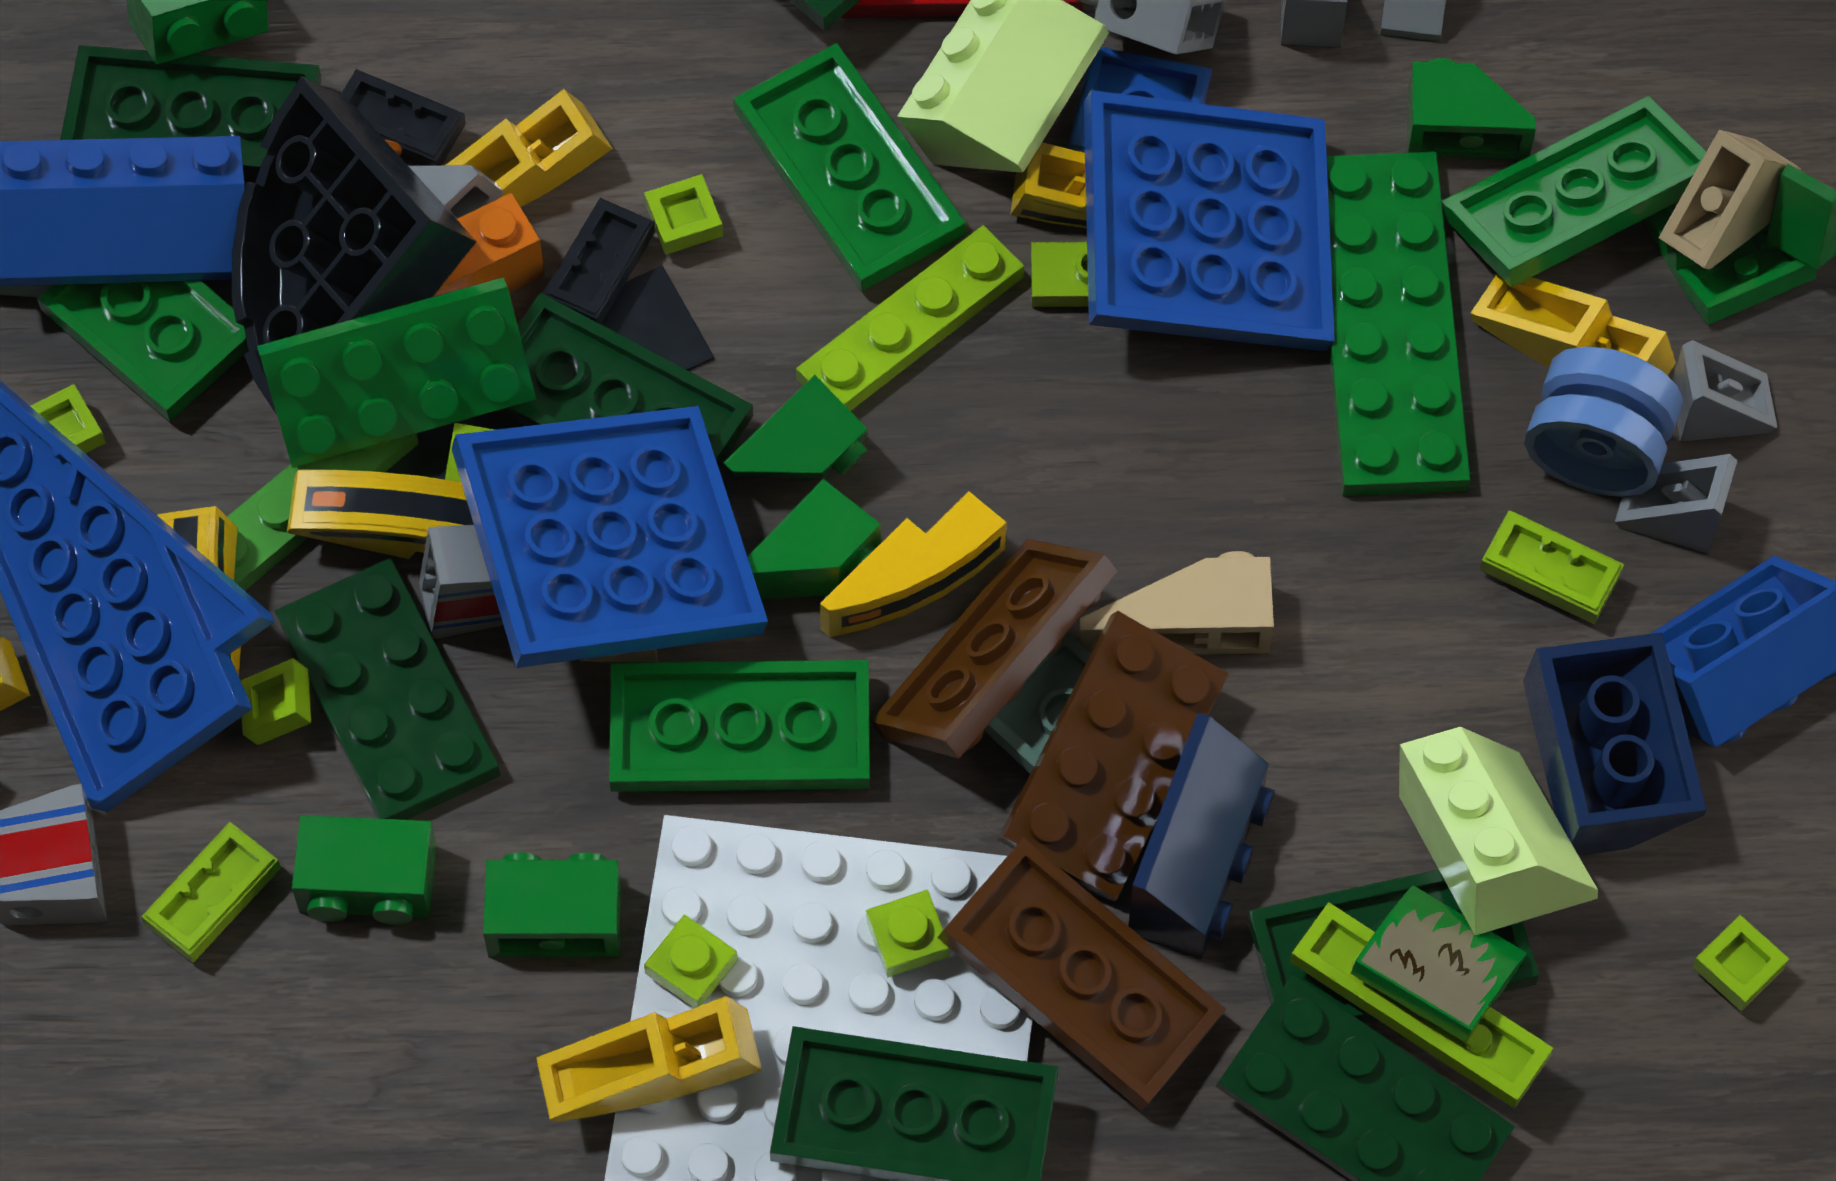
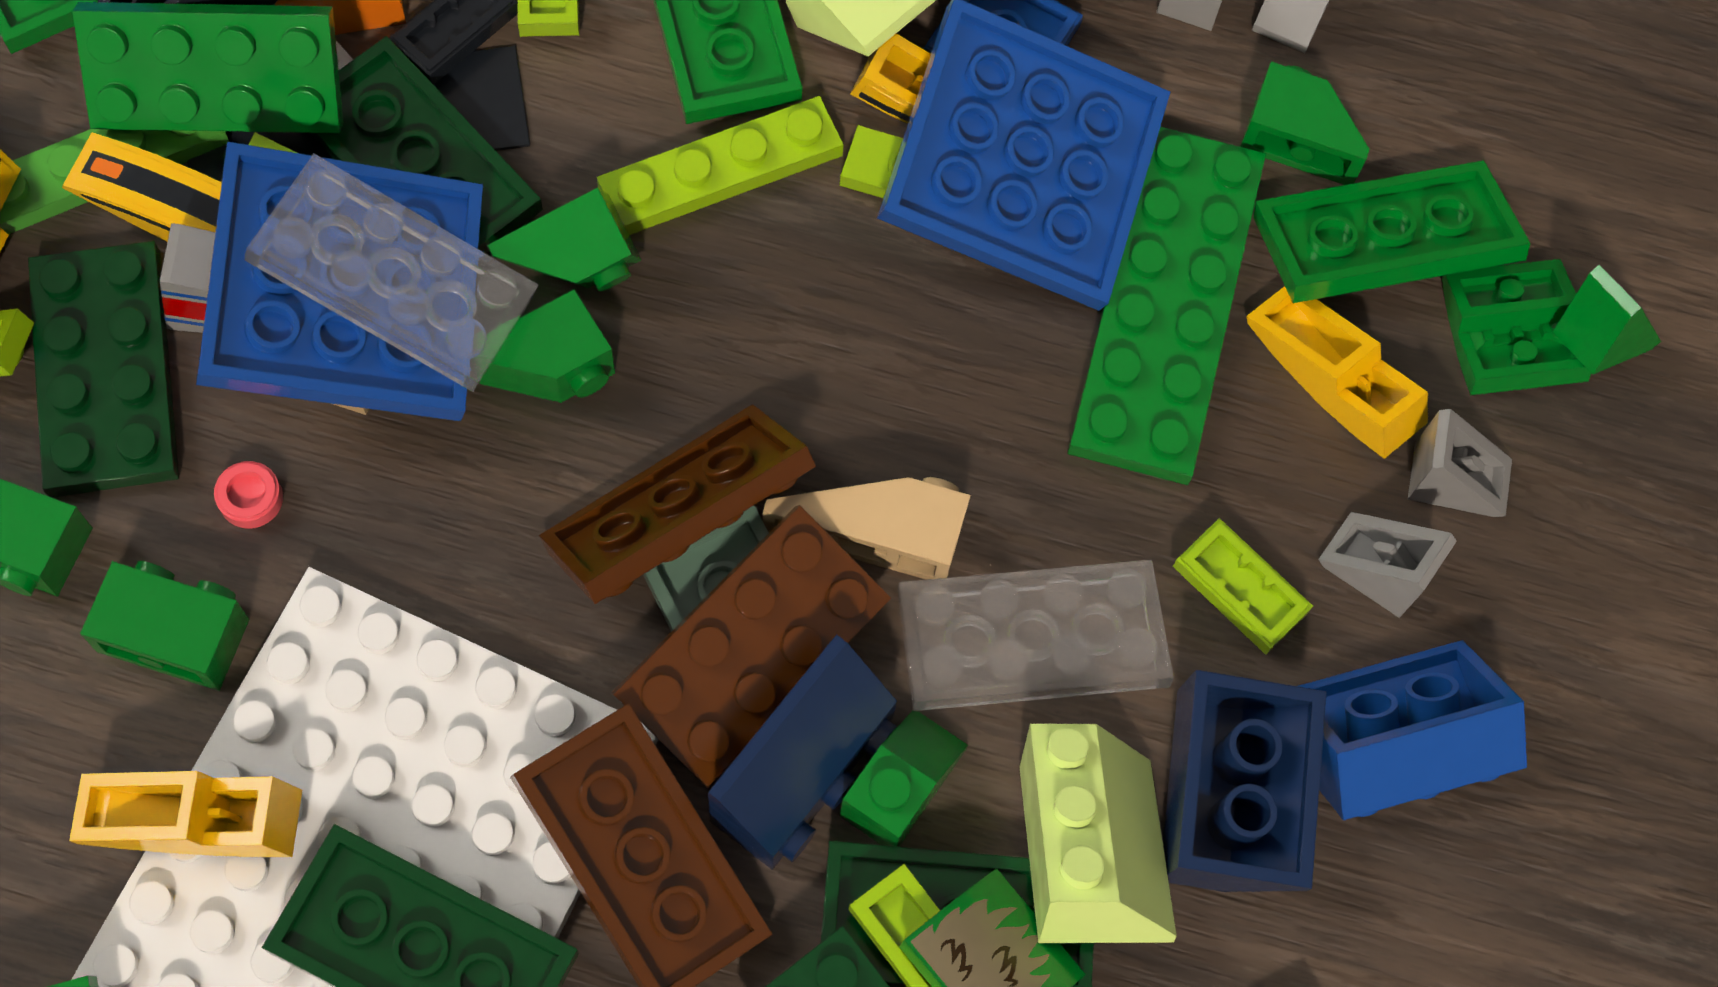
camera: 10 degrees right, 5 degrees up
(576, 768) = (248, 494): none -> coral tile
(655, 511) = (391, 272): none -> clear plate
(691, 962) = (269, 724): lime plate -> none
(739, 726) = (413, 502): green plate -> none
(907, 933) = (485, 760): lime plate -> none
(915, 568) = (632, 401): yellow slope -> none
(1294, 839) = (901, 779): none -> green slope
(1371, 671) = (1034, 635): none -> clear plate
(1603, 421) = (1339, 460): medium blue wheel -> none
(1725, 199) = (1527, 280): tan slope -> none

